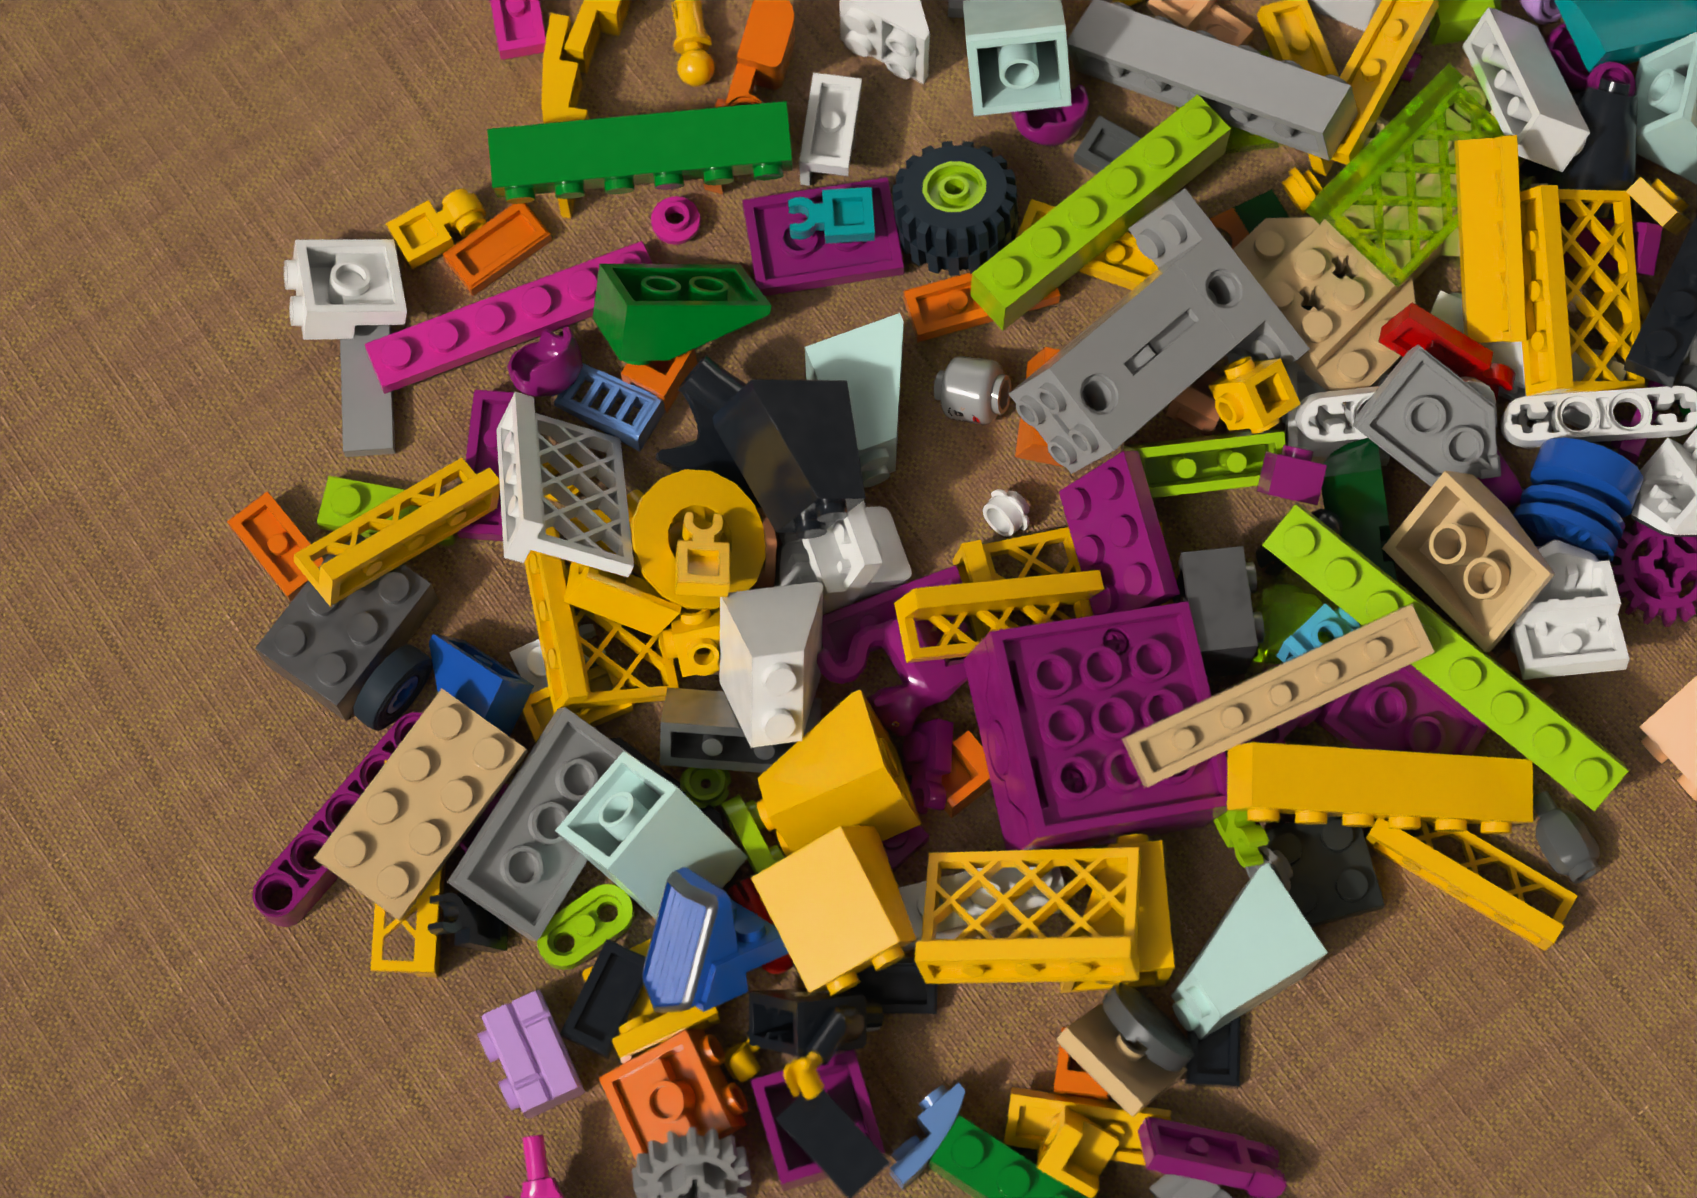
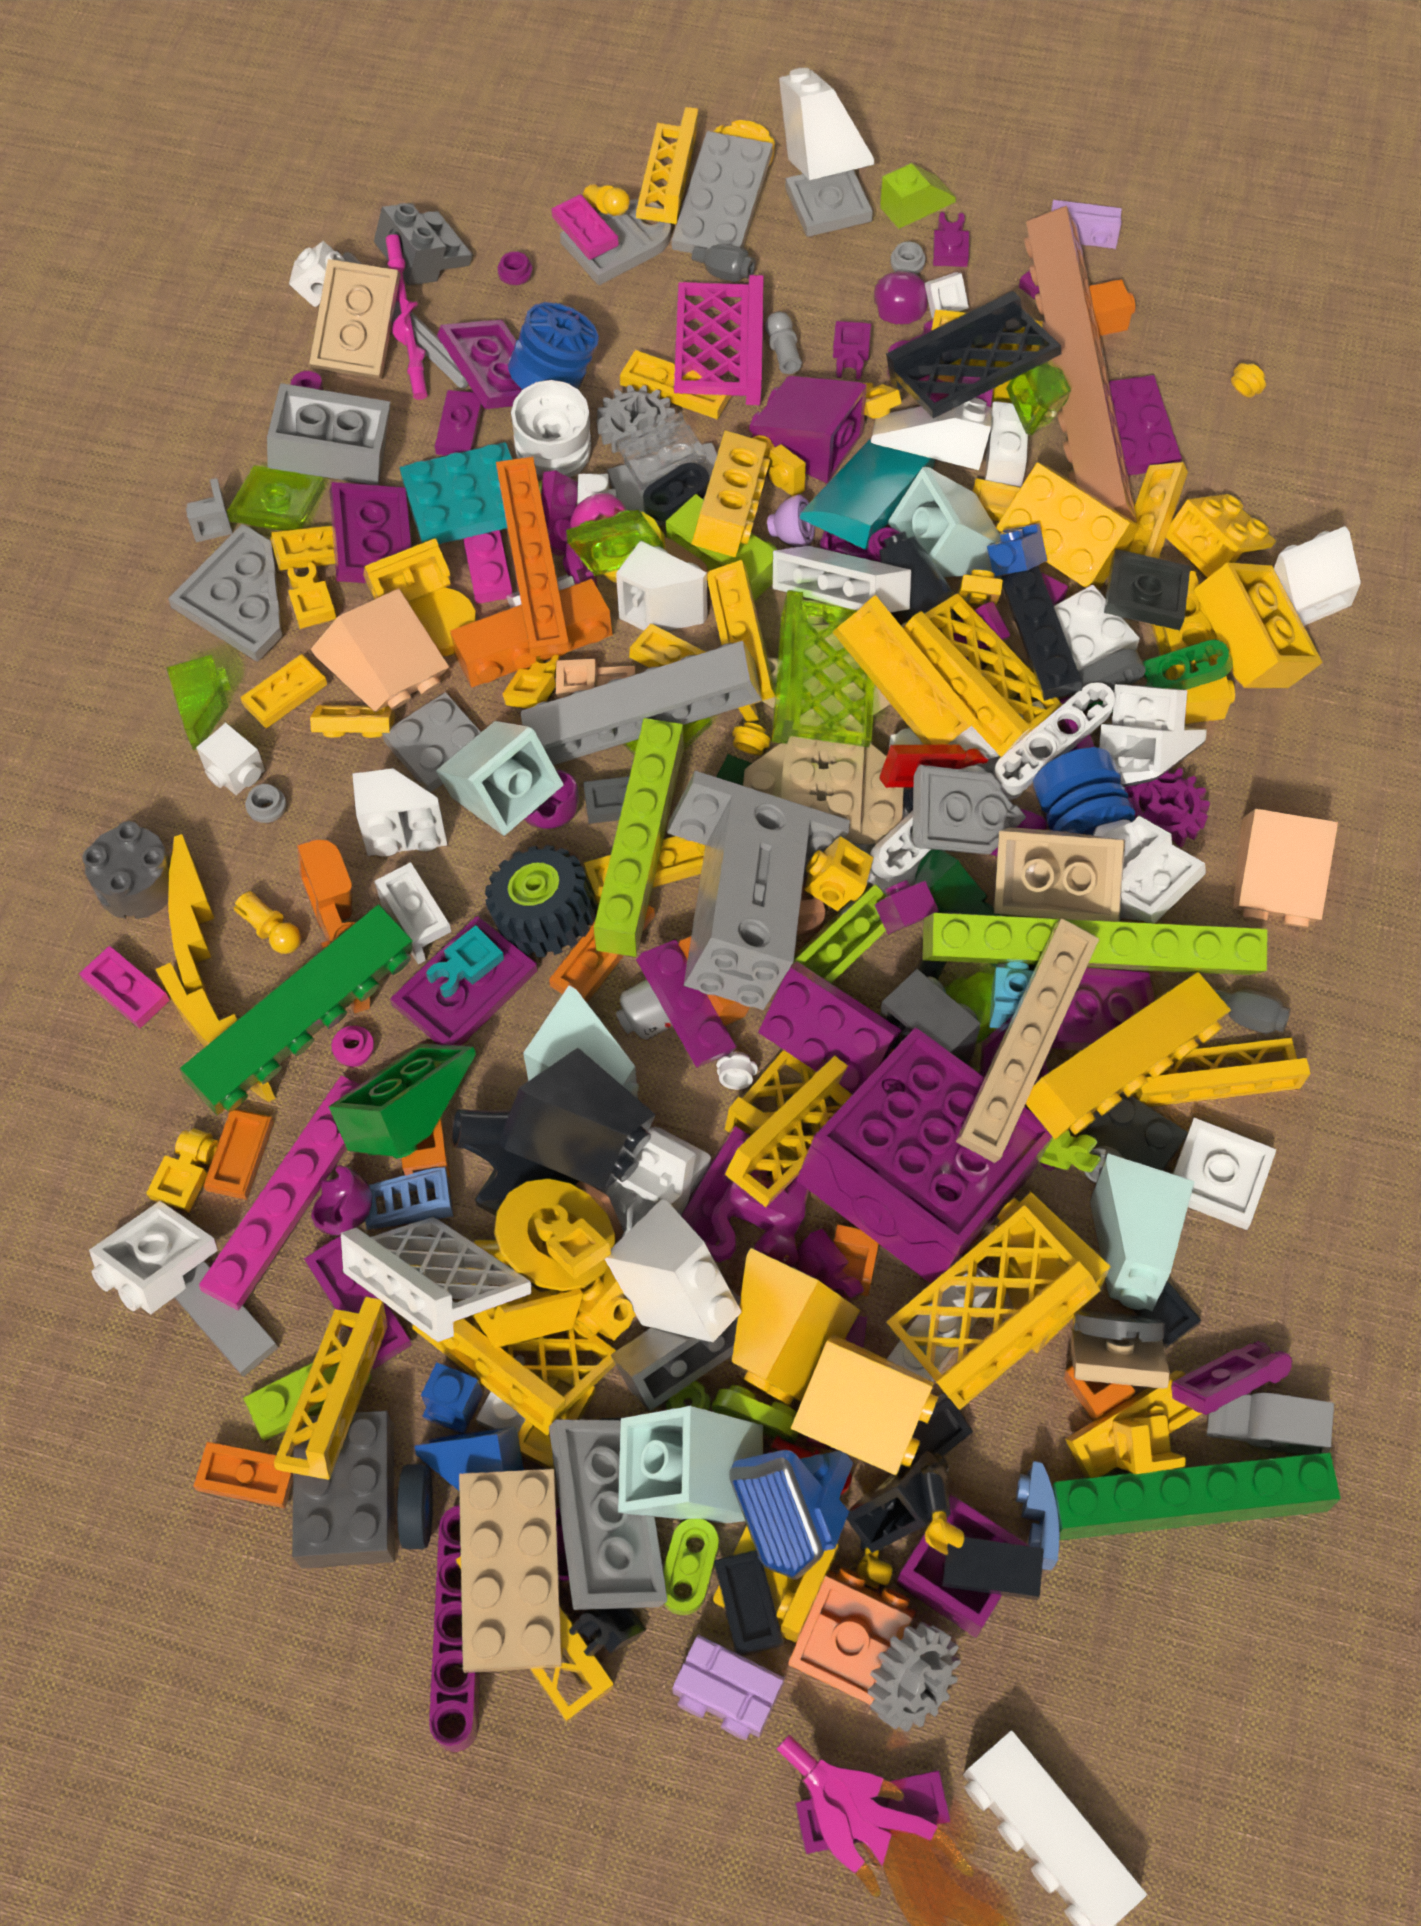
camera: 40 degrees left, 10 degrees down
(501, 616) = (451, 1398): none -> blue brick
(999, 430) = (686, 1007): none -> magenta plate
(1384, 967) = (1226, 1172): none -> white plate

